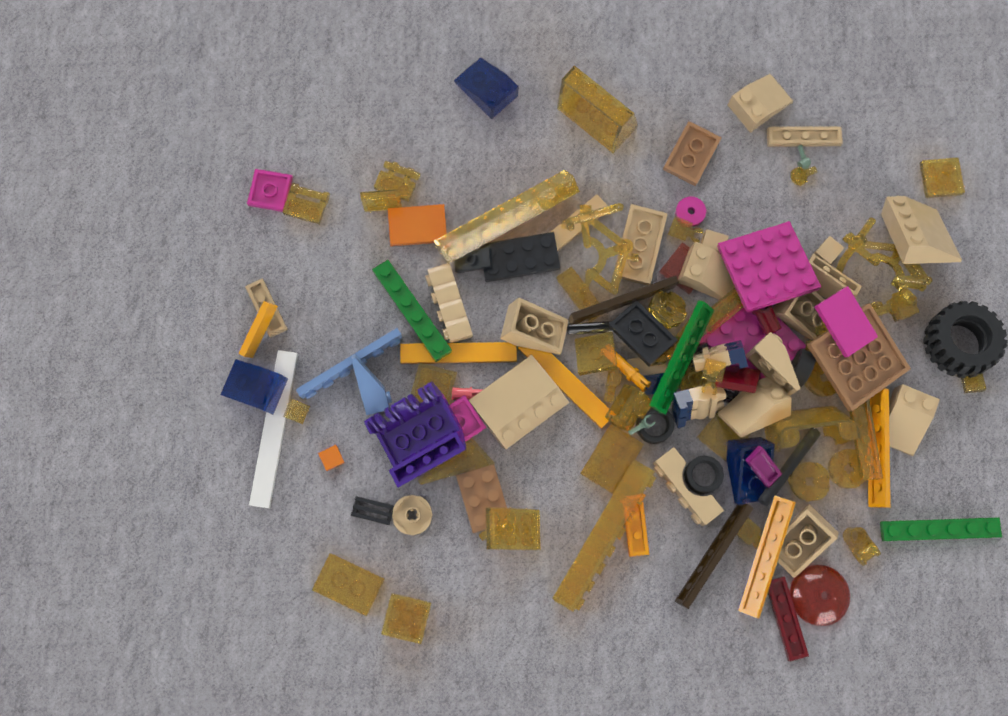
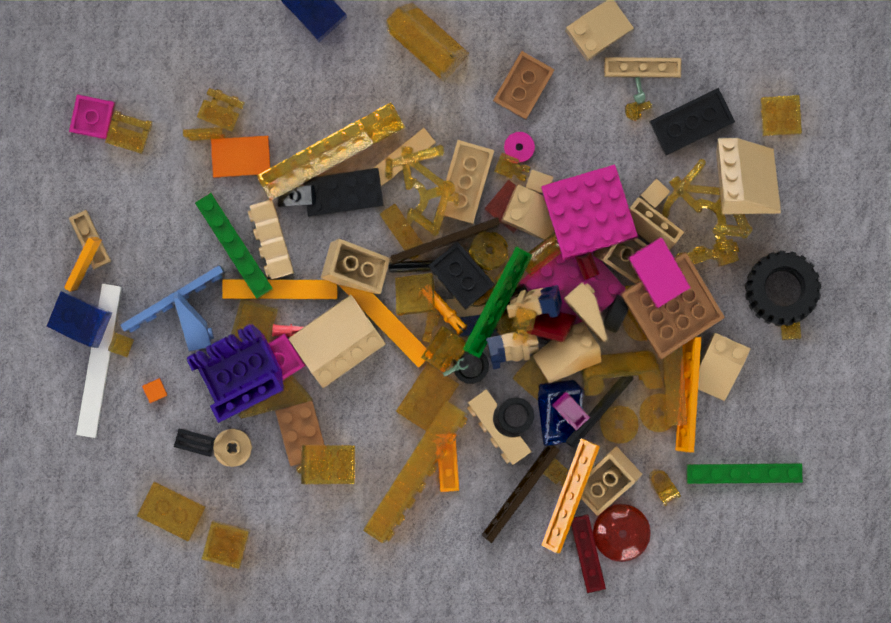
camera: 10 degrees right, 10 degrees up
(857, 184) = (692, 121): none -> black plate

